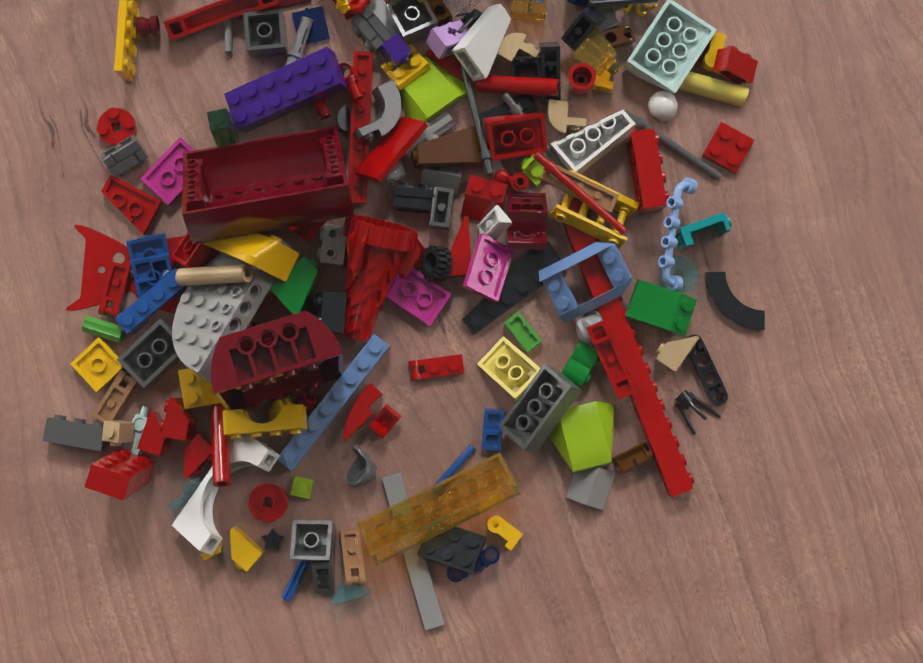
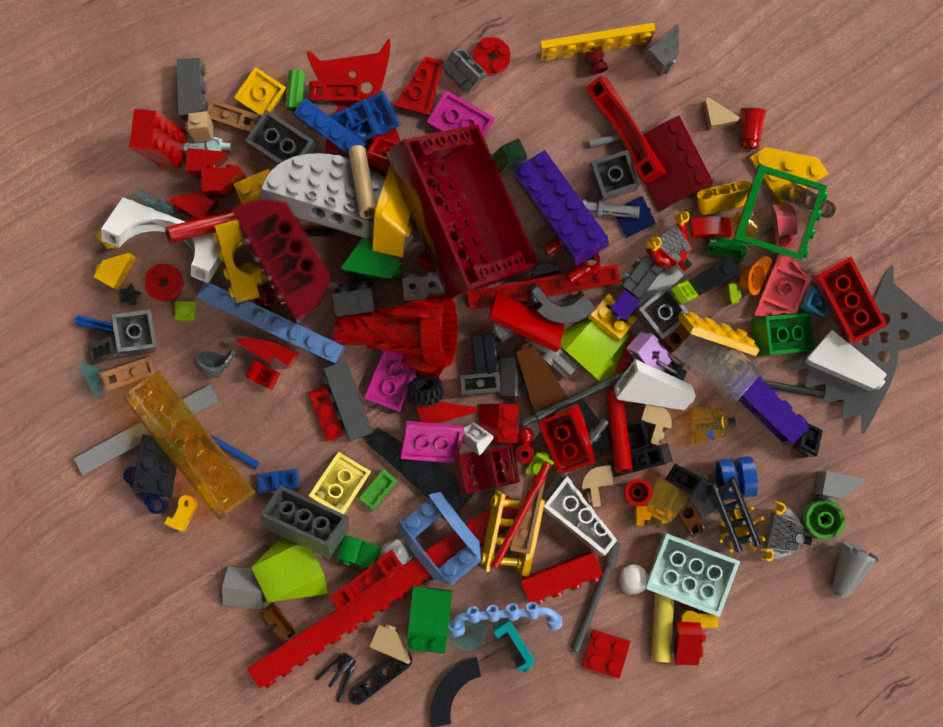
camera: 80 degrees right, 0 degrees up
(429, 342) = (348, 401): none -> dark grey brick

